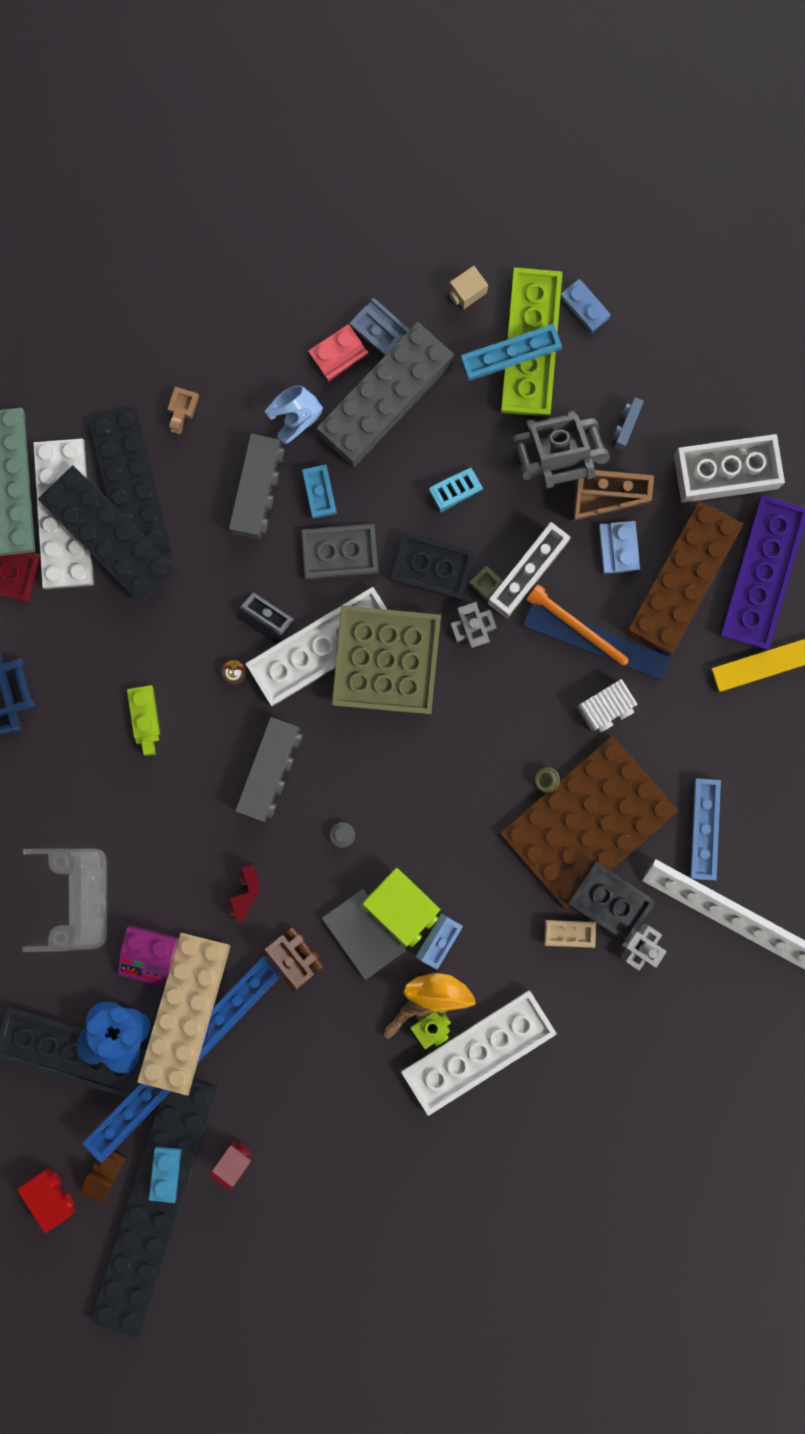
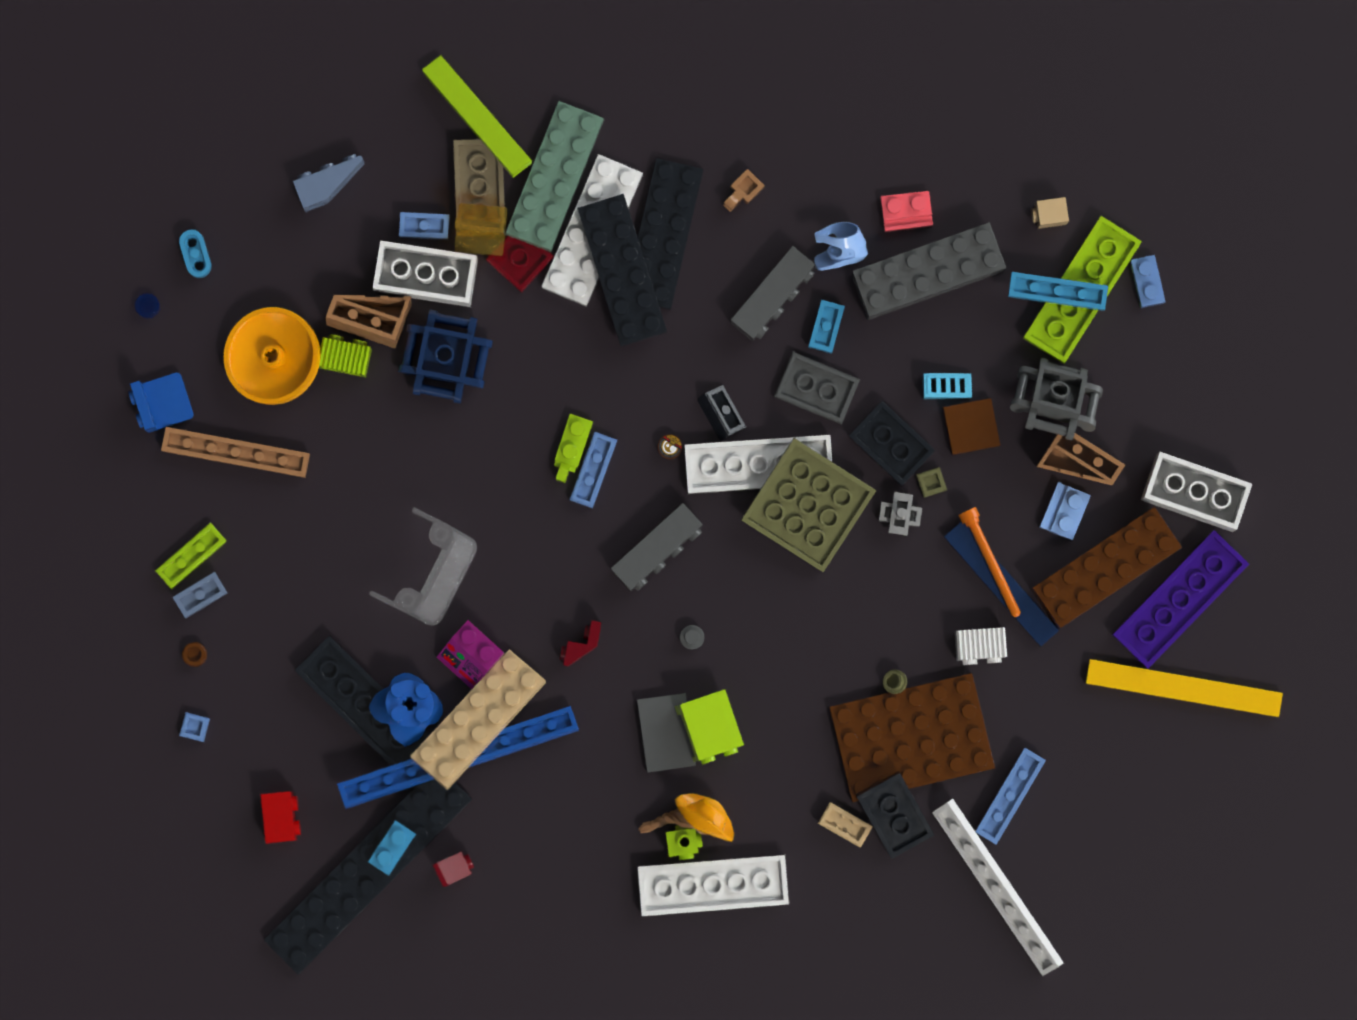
camera: 25 degrees right, 0 degrees up
(102, 1177) = (336, 823): reddish brown slope -> none
(175, 729) = (593, 470): none -> medium blue tile
(289, 963) = (589, 721): reddish brown plate -> none
(379, 327) = (954, 208): sand blue plate -> none
(439, 941) = (728, 772): medium blue plate -> none
(496, 514) = (971, 426): none -> reddish brown tile
(529, 570) = (973, 491): white brick -> none
(630, 414) = (1136, 398): sand blue plate -> none
(646, 950) = (905, 872): light grey piece -> none

